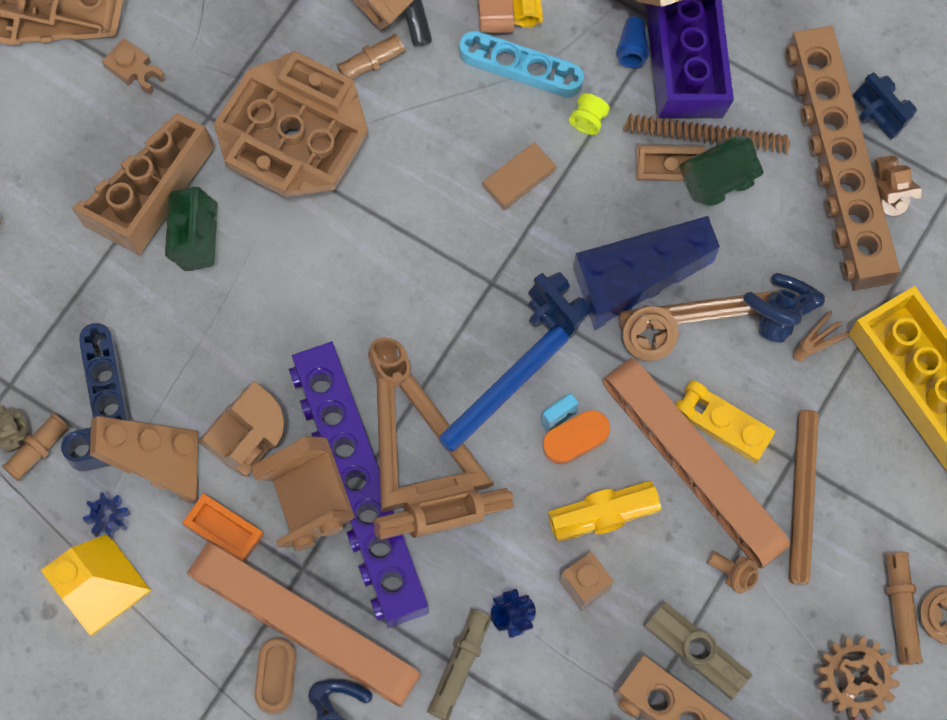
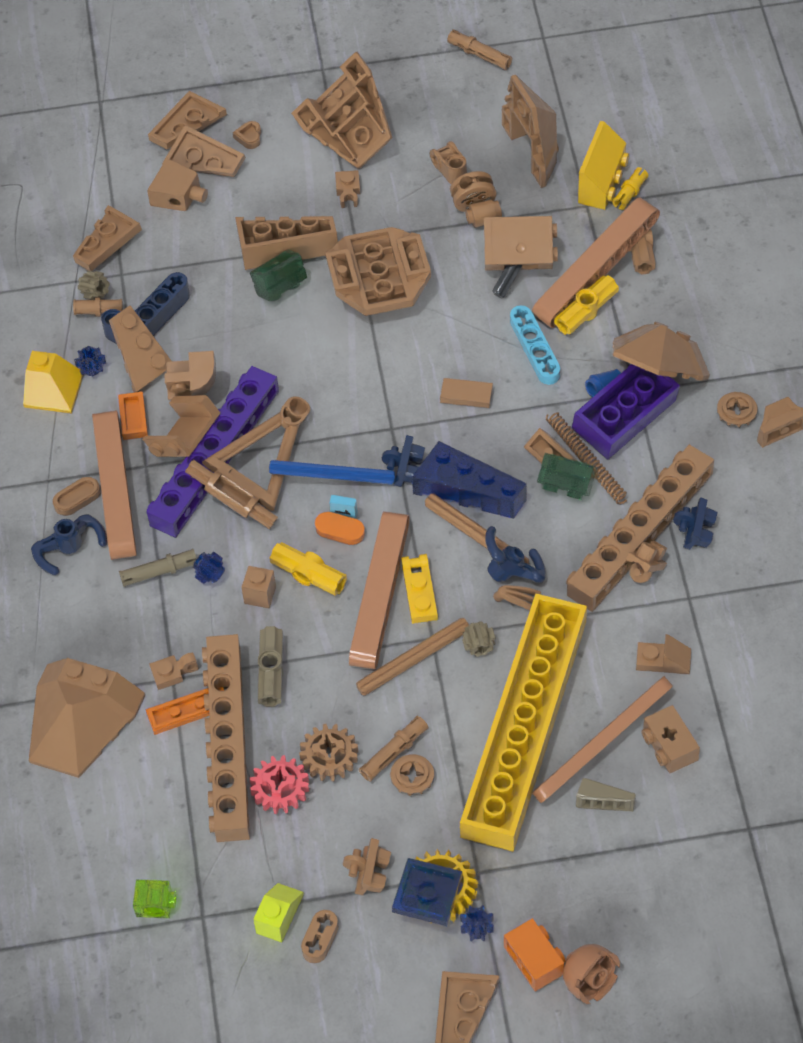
camera: 55 degrees right, 15 degrees down
(371, 57) = (462, 277): medium nougat pin -> none
(589, 114) = (536, 393): neon yellow wheel -> none
(663, 341) = (422, 516): medium nougat gear -> none
(741, 575) = (335, 658): medium nougat plate -> none
(845, 417) = (478, 638): none -> dark tan gear

